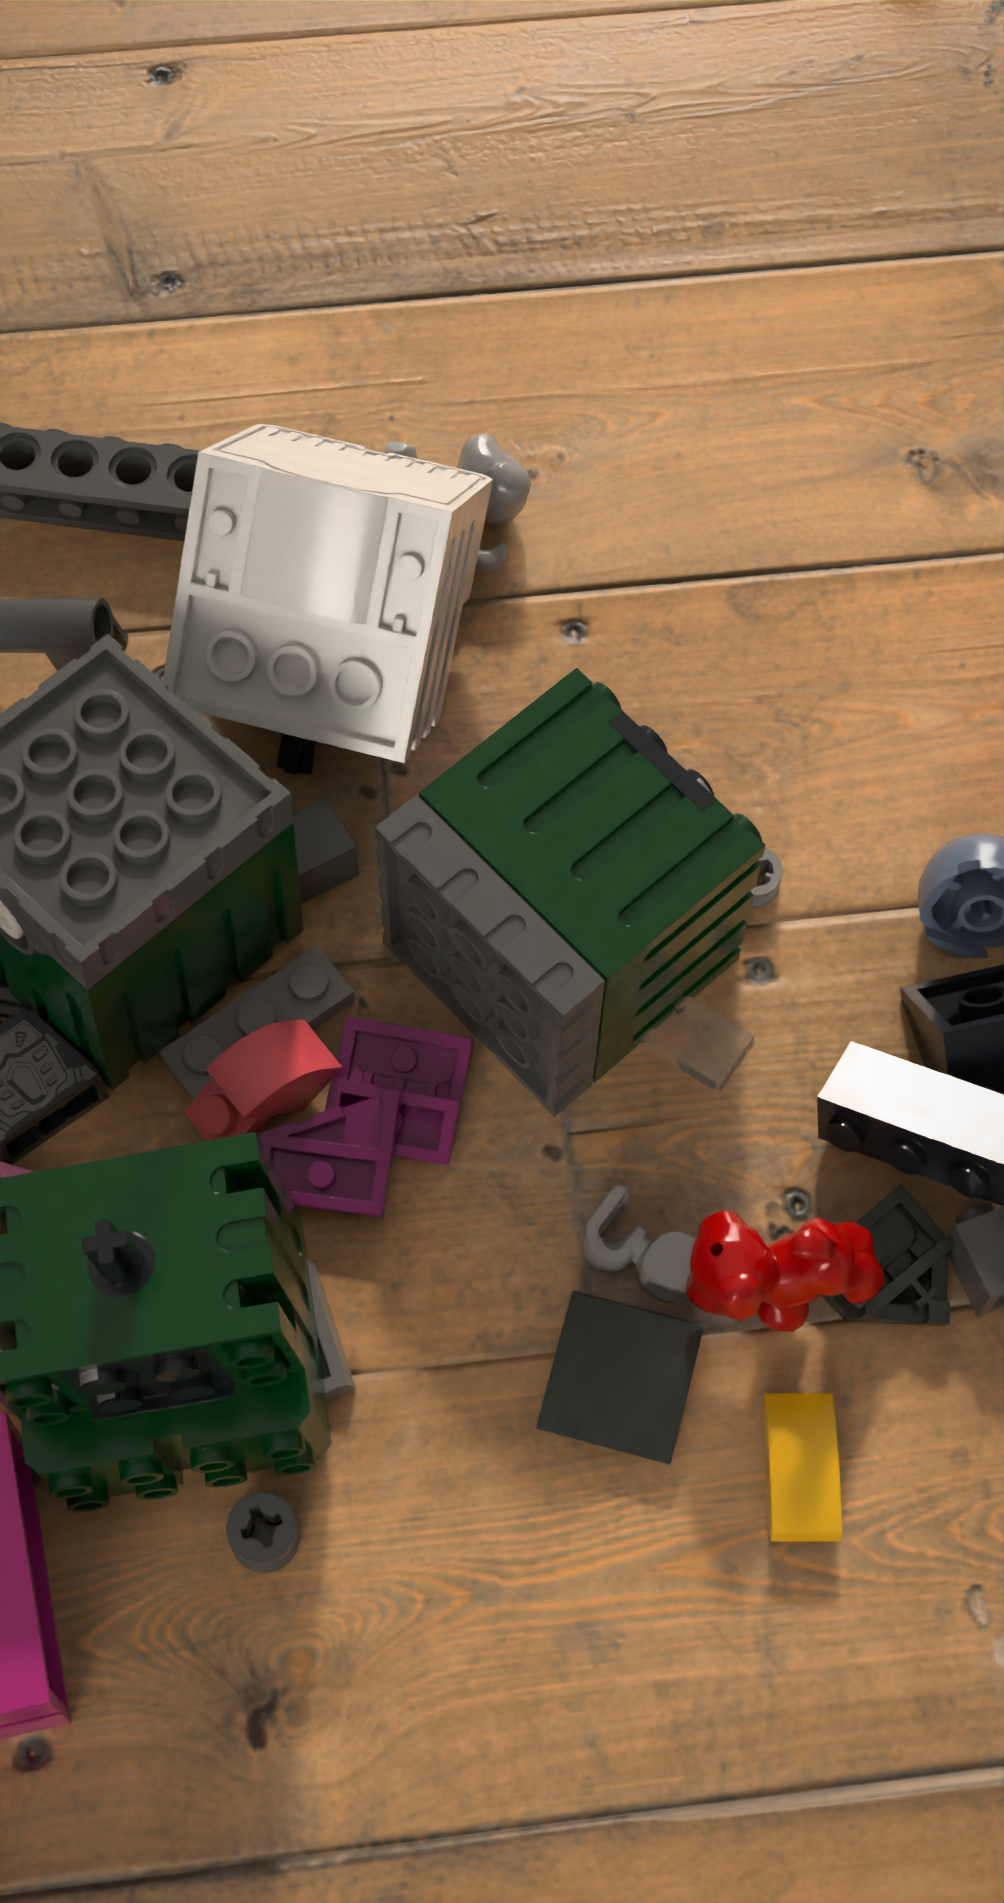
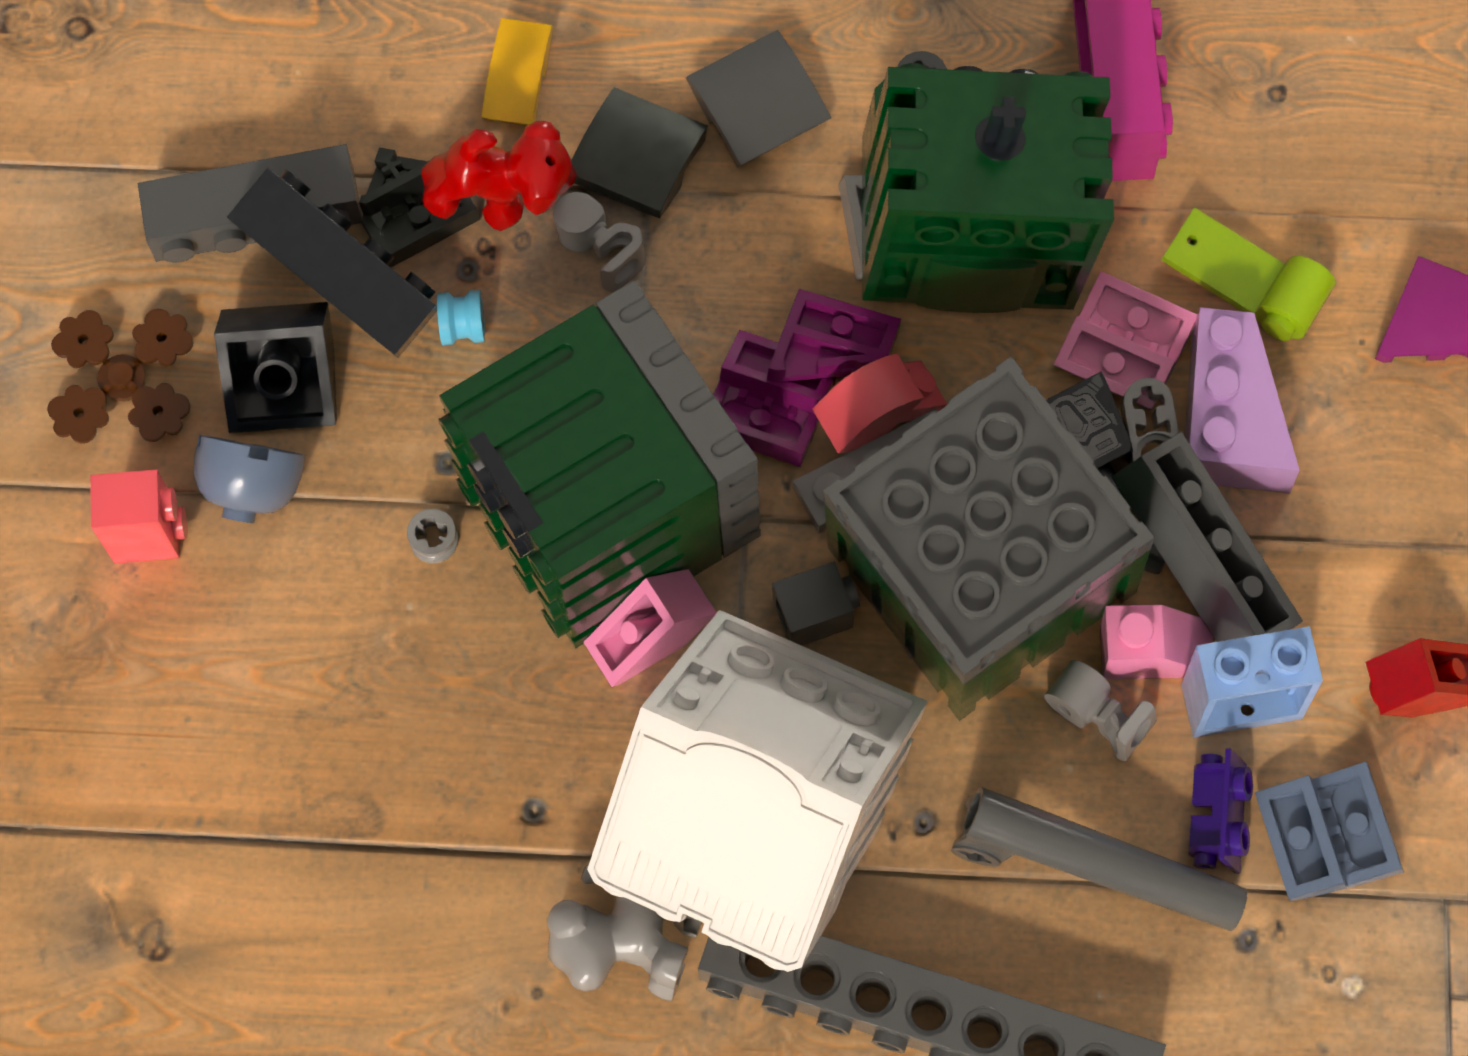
camera: 165 degrees left, 5 degrees up
(477, 1480) = (758, 97): none -> dark grey slope
(787, 1120) = (461, 317): none -> medium azure wheel

